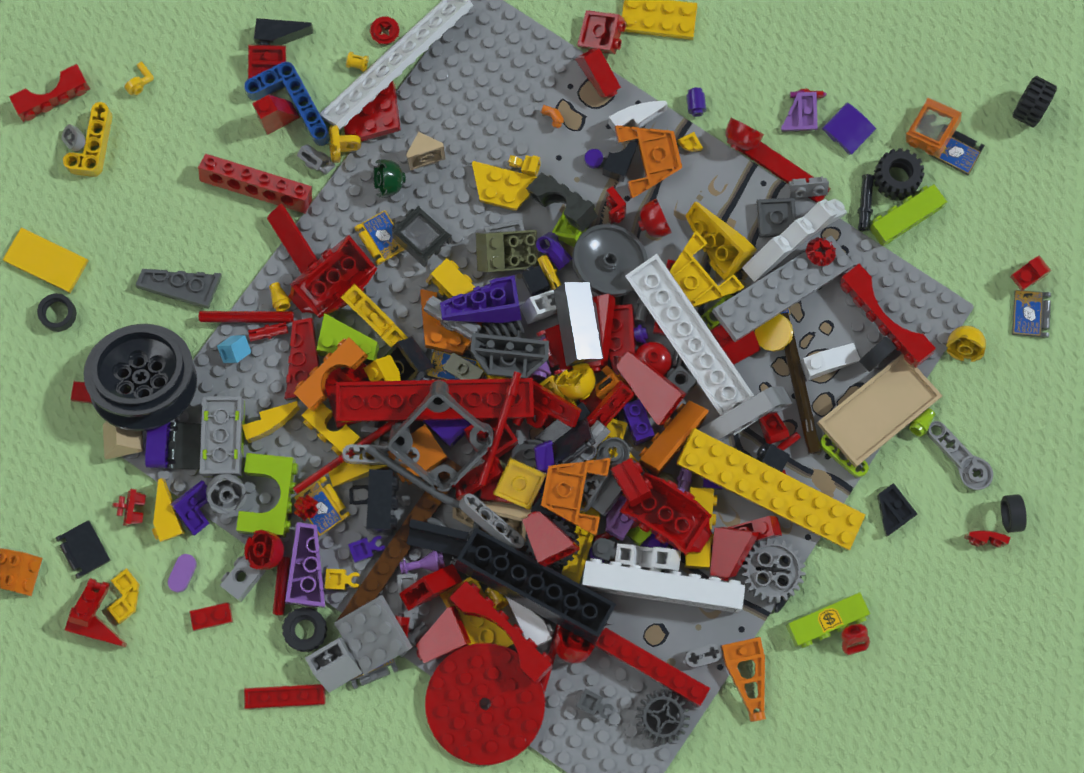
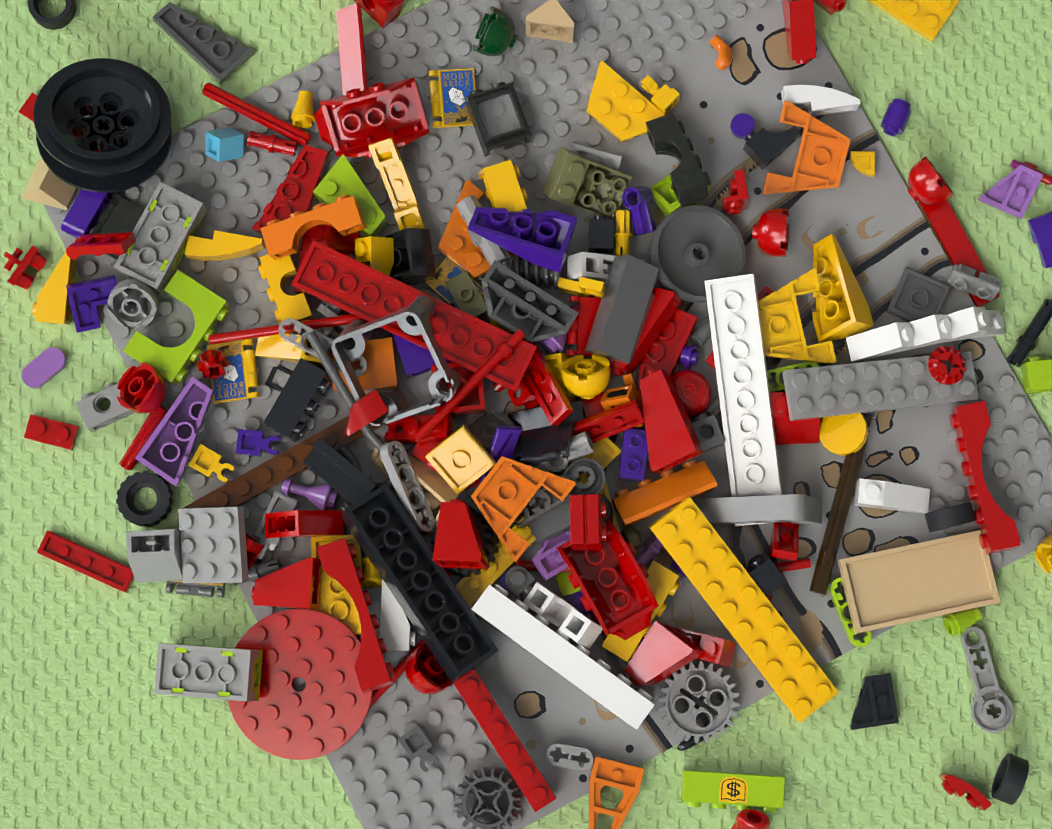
camera: 30 degrees right, 5 degrees up
(182, 462) = (101, 244): none -> red plate
(415, 727) = (208, 672): none -> light grey piece
(435, 484) = (365, 411): none -> red slope
(543, 323) = (583, 287): none -> yellow tile

